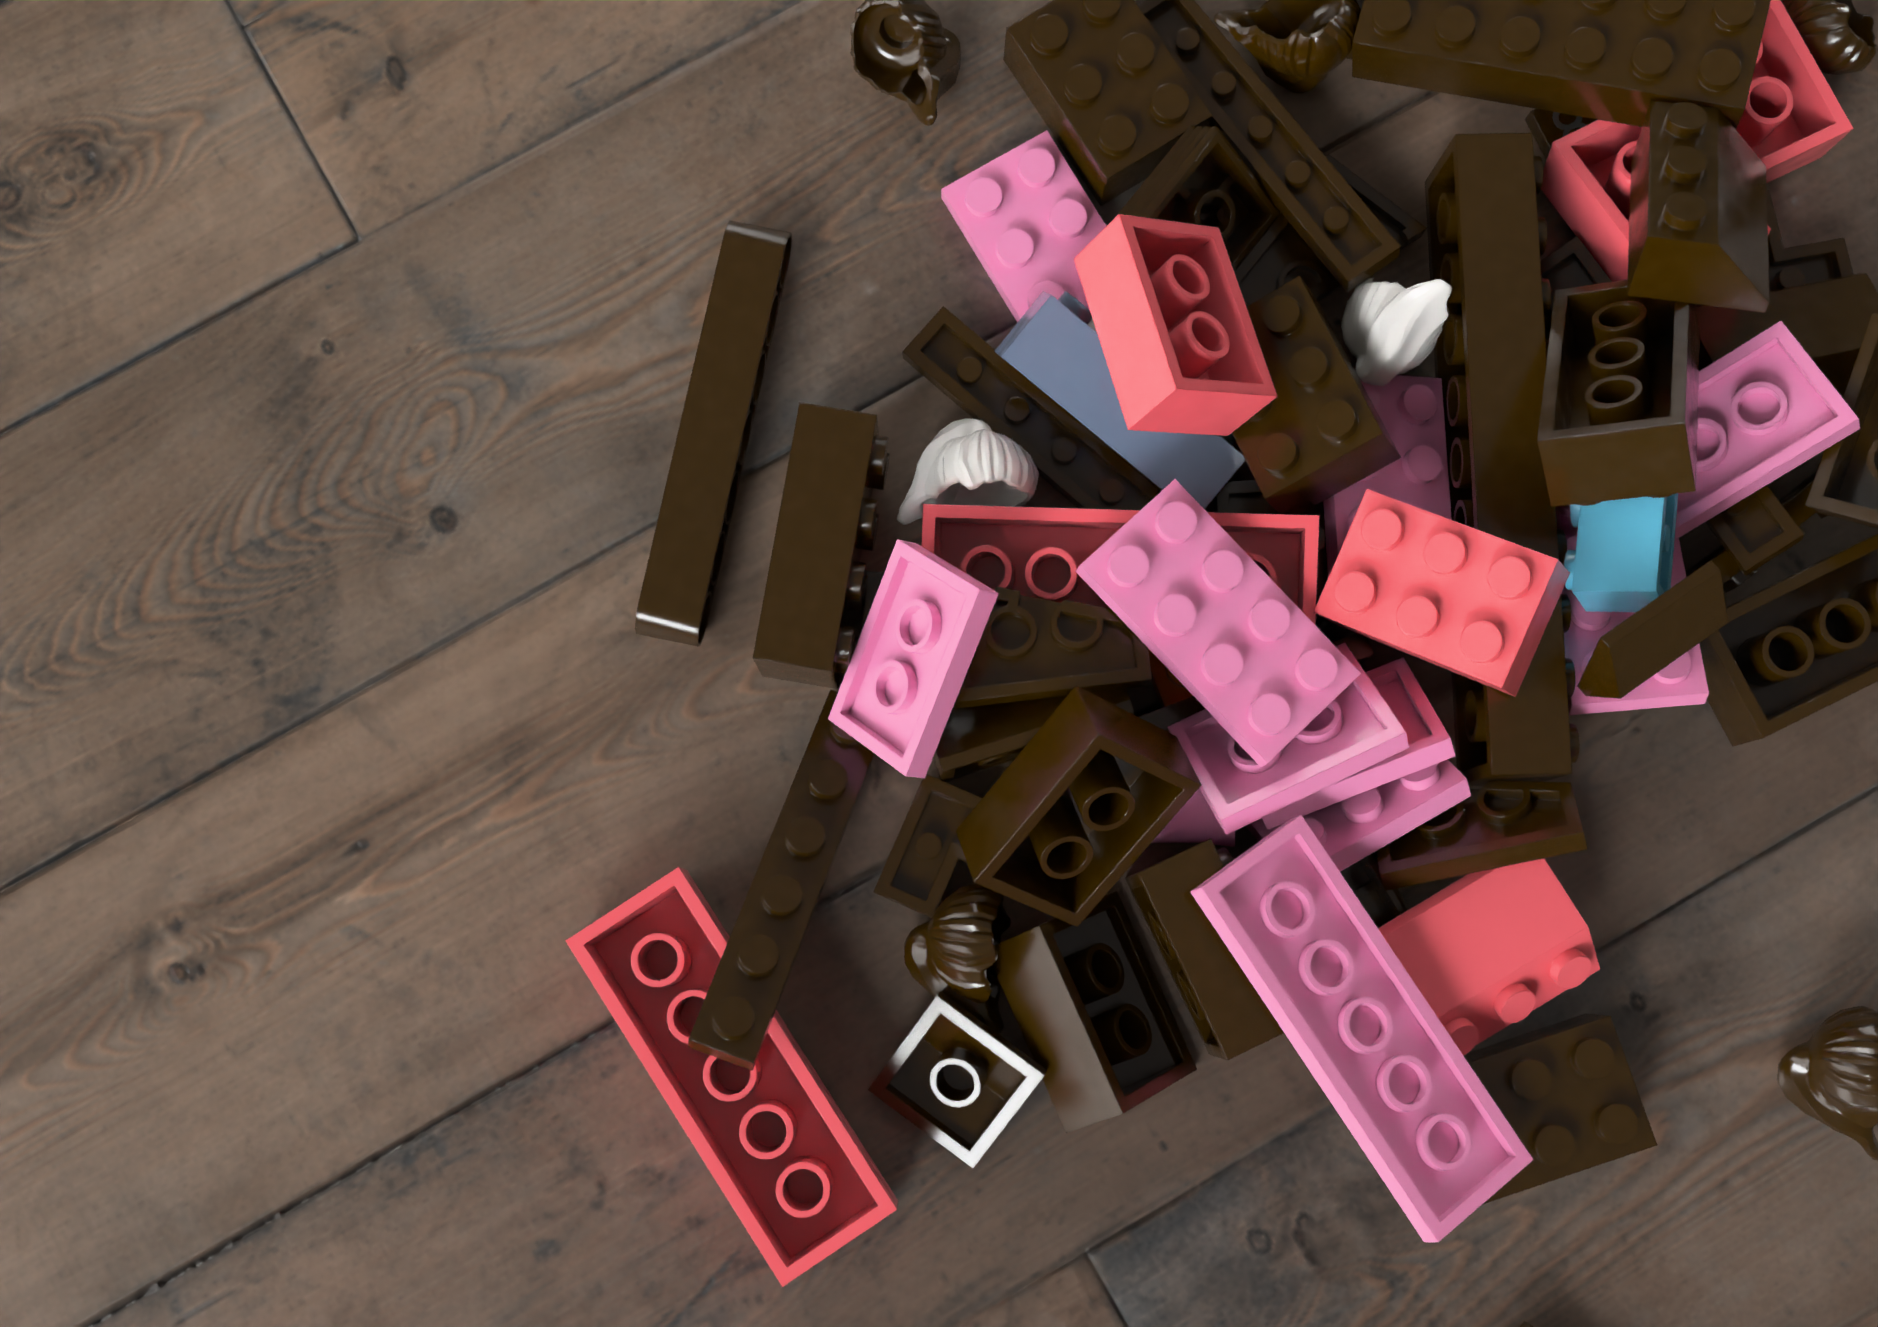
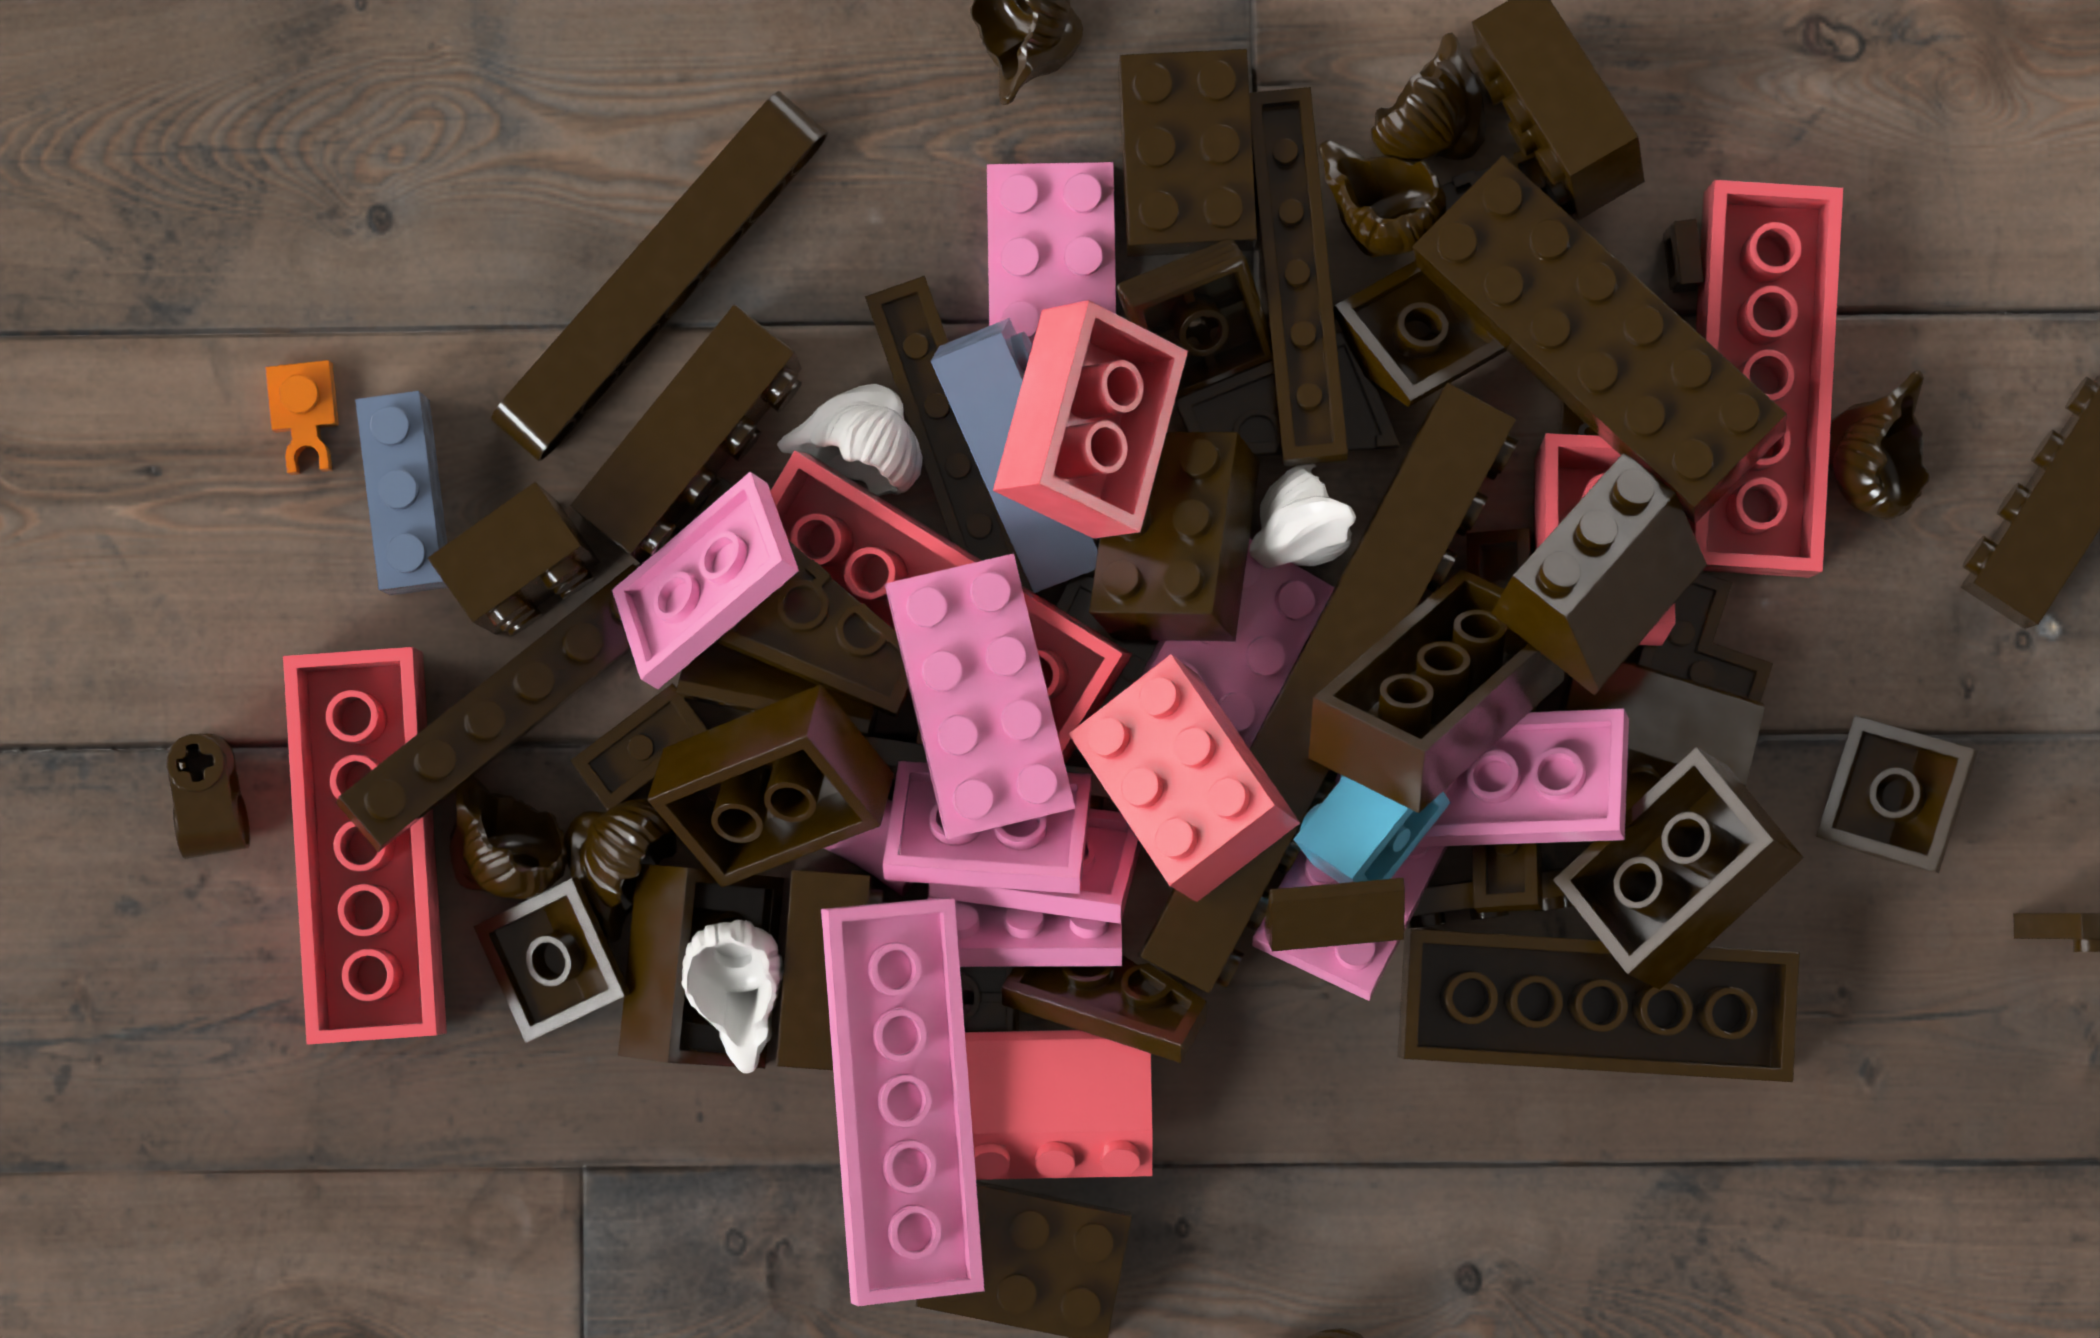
camera: 30 degrees right, 5 degrees up
(461, 713) = (303, 402): none -> orange plate
(571, 1122) = (211, 810): none -> dark brown piece
(593, 738) = (402, 490): none -> sand blue brick
(730, 735) = (515, 562): none -> dark brown brick
(857, 1000) = (504, 844): none -> dark brown hair
(1144, 1008) = (734, 983): none -> white hair
(1386, 130) = (1412, 335): none -> dark brown slope

